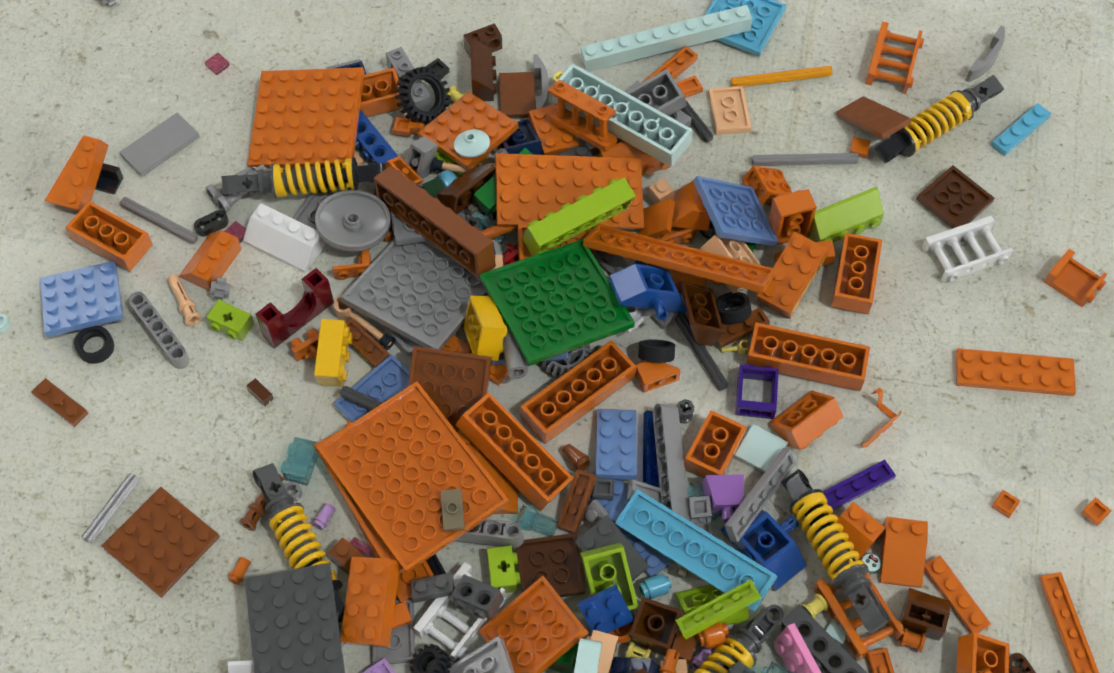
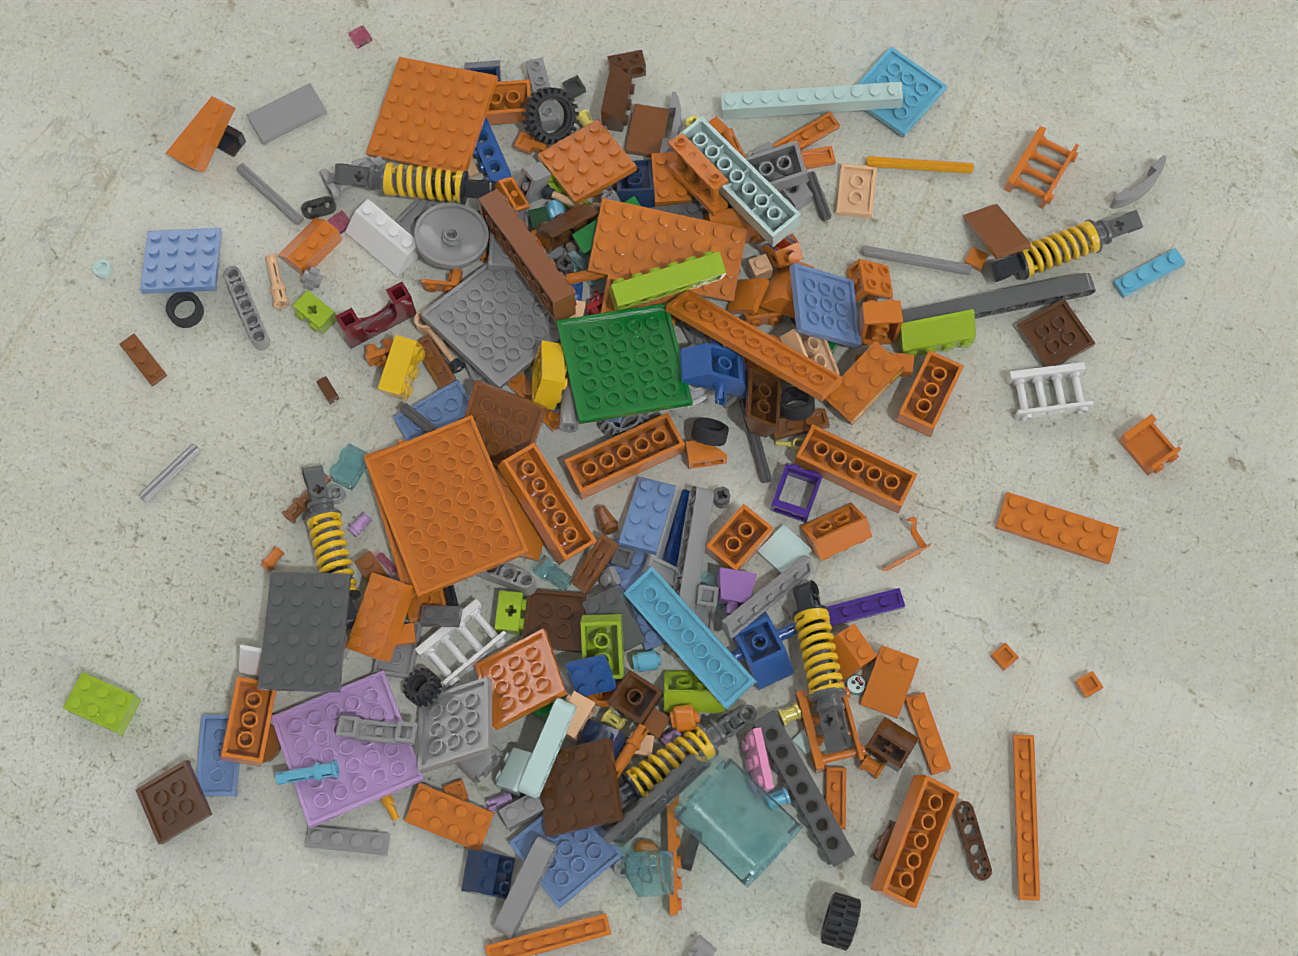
camera: 15 degrees right, 10 degrees up
(109, 236) = (219, 202): orange brick -> none
(160, 542) = (208, 515): dark orange plate -> none
(452, 510) = (473, 549): dark tan plate -> none
(471, 143) = (584, 184): light aqua dish -> none
(480, 593) = (480, 633): dark grey brick -> none
(682, 173) = (785, 252): none -> orange torso
(718, 609) = (693, 699): lime plate -> none
(908, 173) = (1009, 299): none -> dark grey beam

